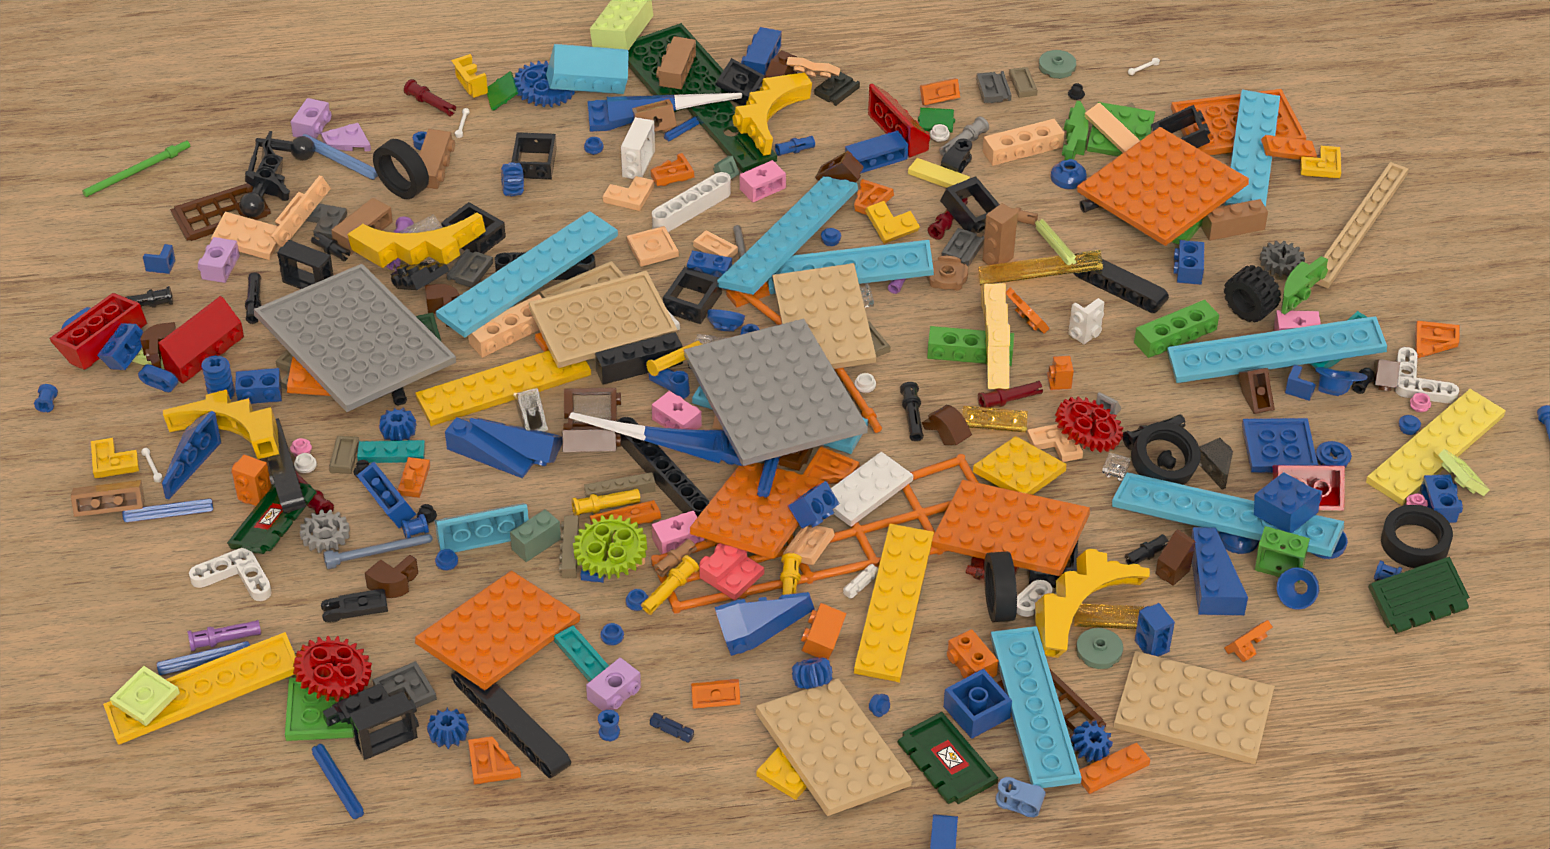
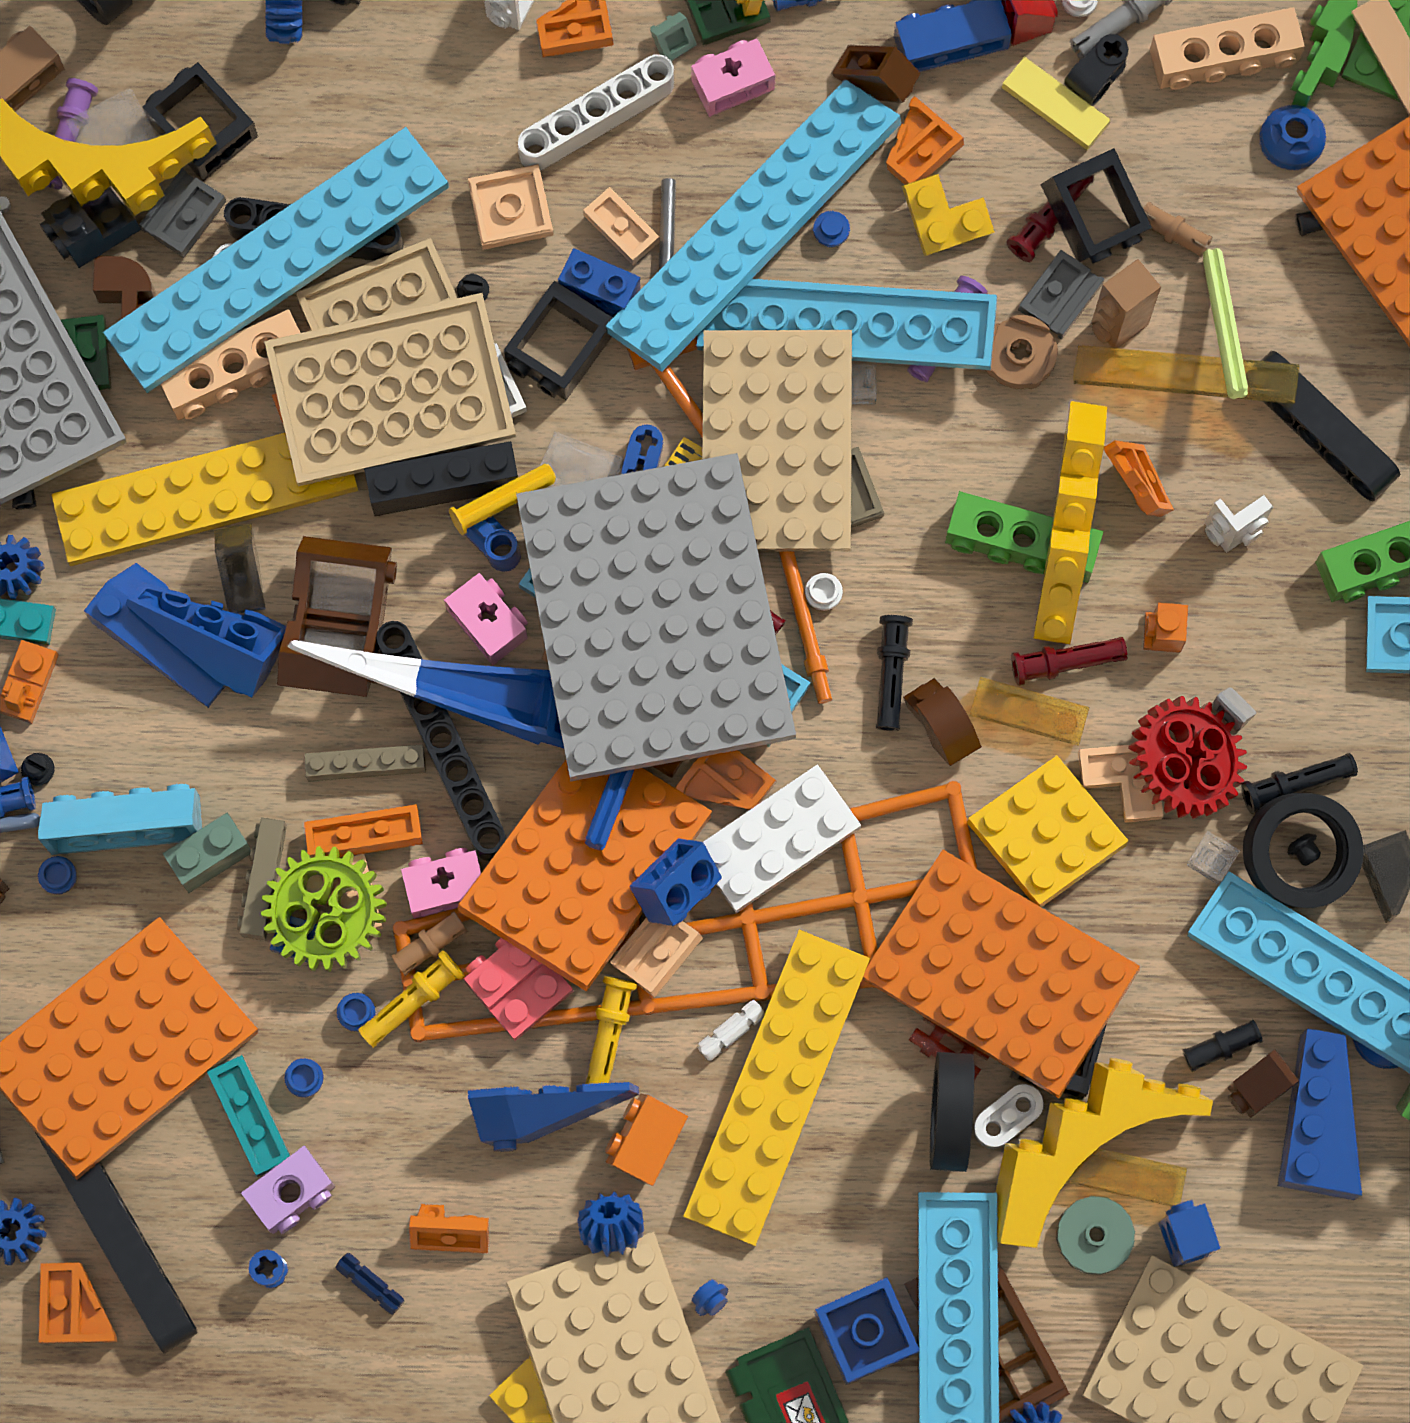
camera: 10 degrees right, 30 degrees up
(596, 503) = (317, 793): yellow pin -> none
(631, 197) = (492, 75): light nougat plate -> none
(725, 320) = (606, 411): blue piece -> none
(971, 655) = (879, 1228): orange brick -> none
(1243, 647) = (1331, 1270): orange hinge -> none

